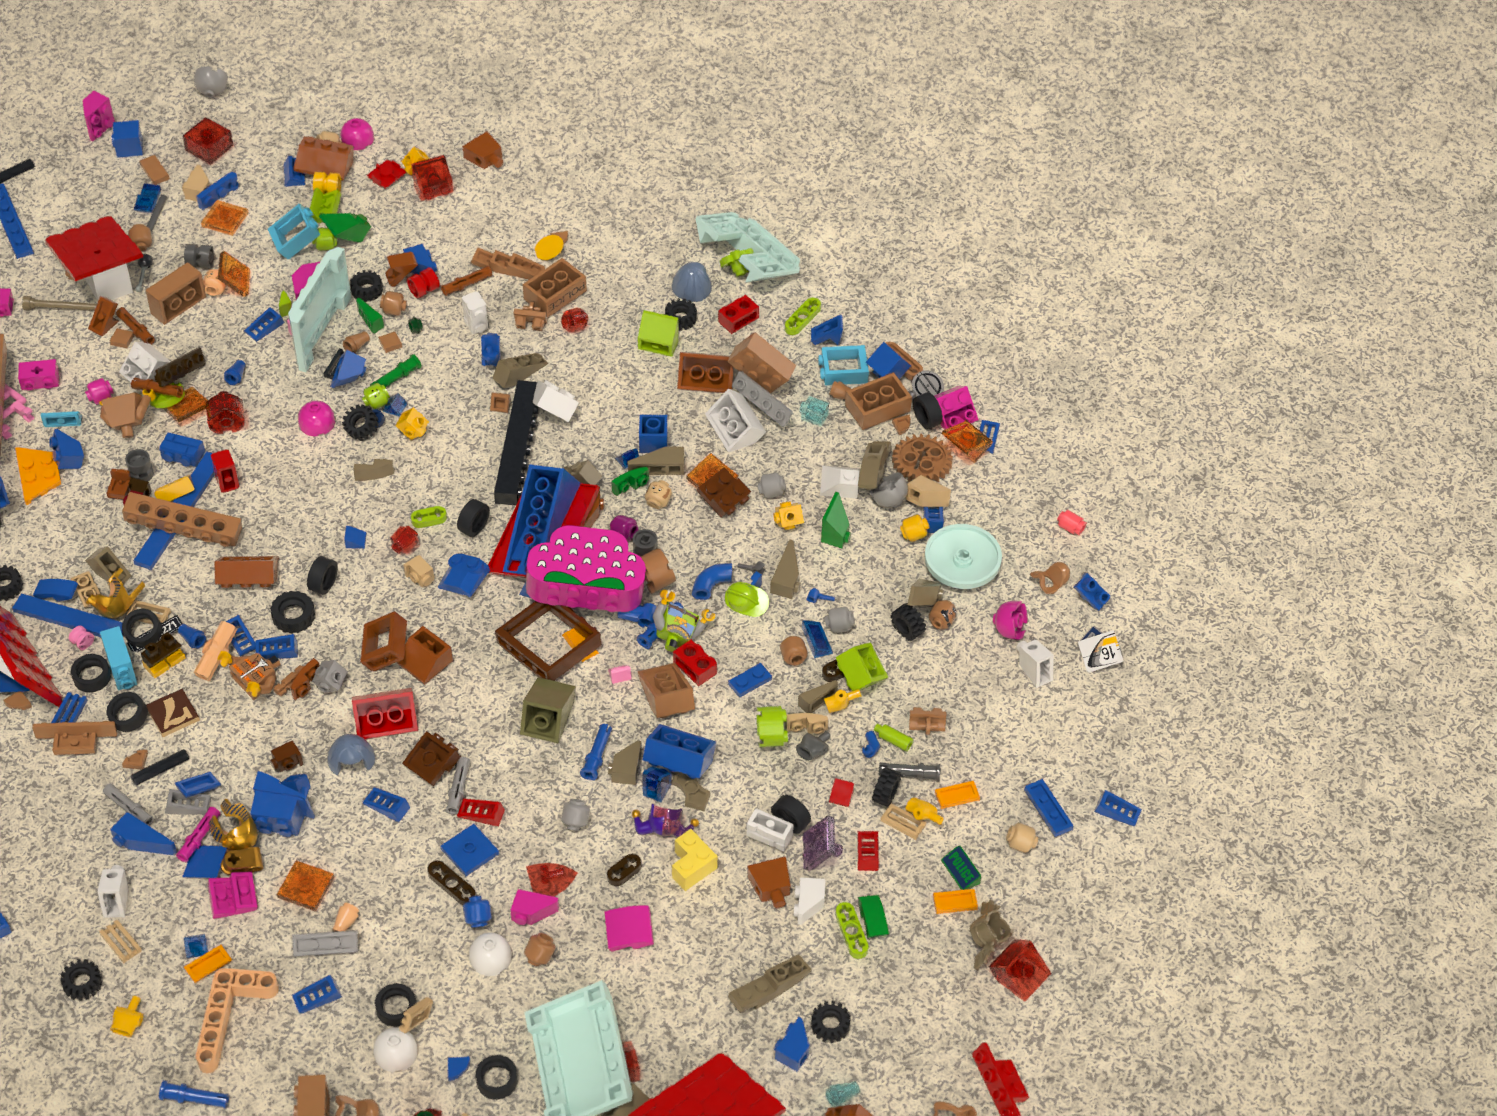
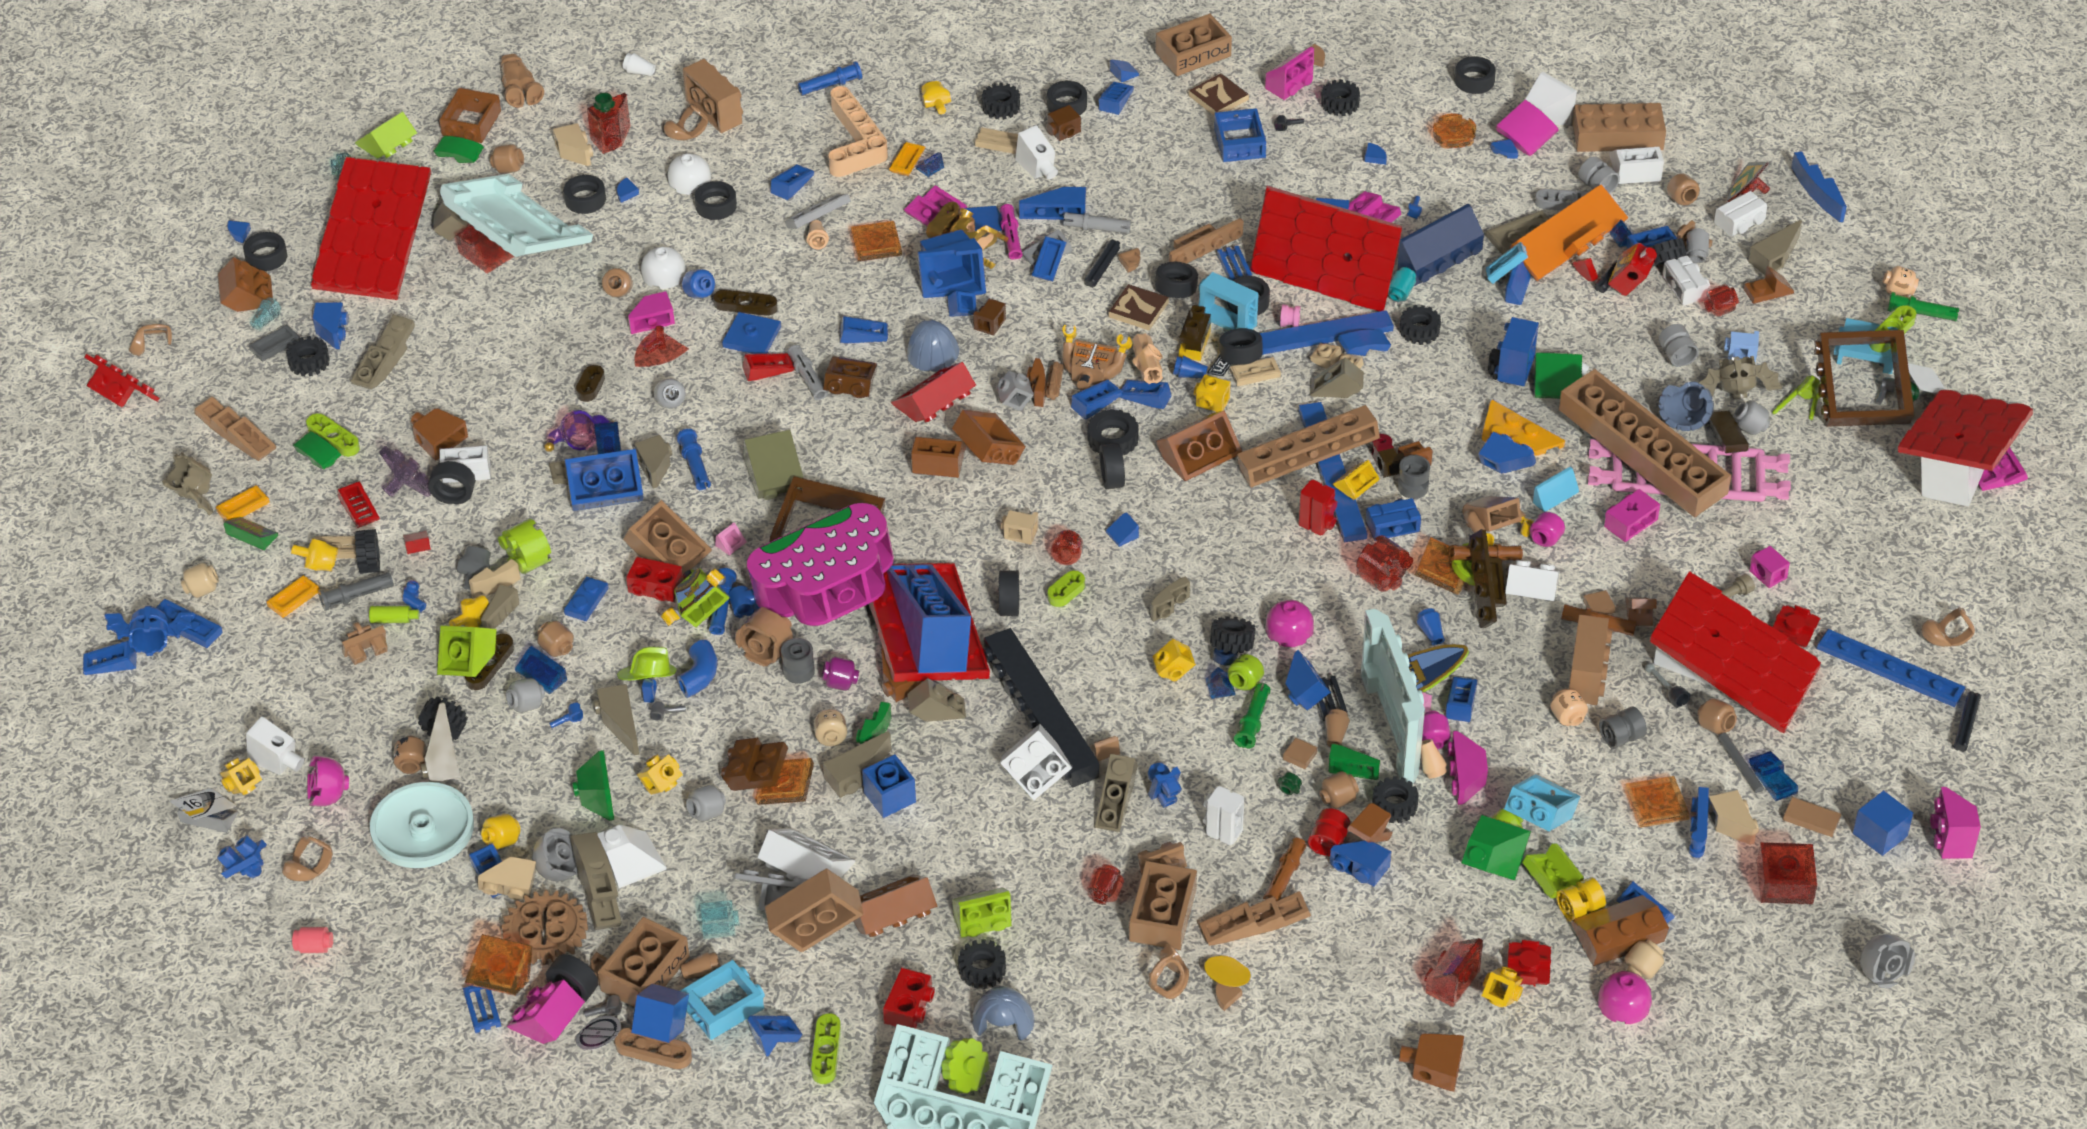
camera: 150 degrees right, 5 degrees down
(31, 265) = (1796, 624): none -> red piece
(32, 962) = (1067, 88): none -> black tyre
(57, 920) = (1064, 123): none -> reddish brown brick
(118, 600) = (1292, 350): pearl gold piece -> none
(199, 599) = (1212, 393): none -> yellow brick
(234, 273) = (1554, 720): clear orange plate -> none
(269, 344) = (1436, 664): none -> shield
(284, 304) = (1462, 723): lime slope -> none
(416, 1015) = (685, 186): tan tile -> none
(464, 574) = (971, 544): blue slope -> none
(574, 259) = (1173, 961): none -> medium nougat piece
(626, 456) = (906, 755): clear blue slope -> none
(629, 927) = (550, 341): dark pink slope -> none
(695, 862) = (525, 413): light yellow brick -> none
(811, 898) = (389, 432): white slope -> none
(849, 1060) = (274, 343): none -> dark grey tile
(927, 978) = (235, 429): none -> medium nougat slope
(1020, 968) = (145, 471): clear red slope -> none
(1066, 653) = (248, 776): none -> yellow brick
(1079, 807) = (149, 628): none -> blue helmet

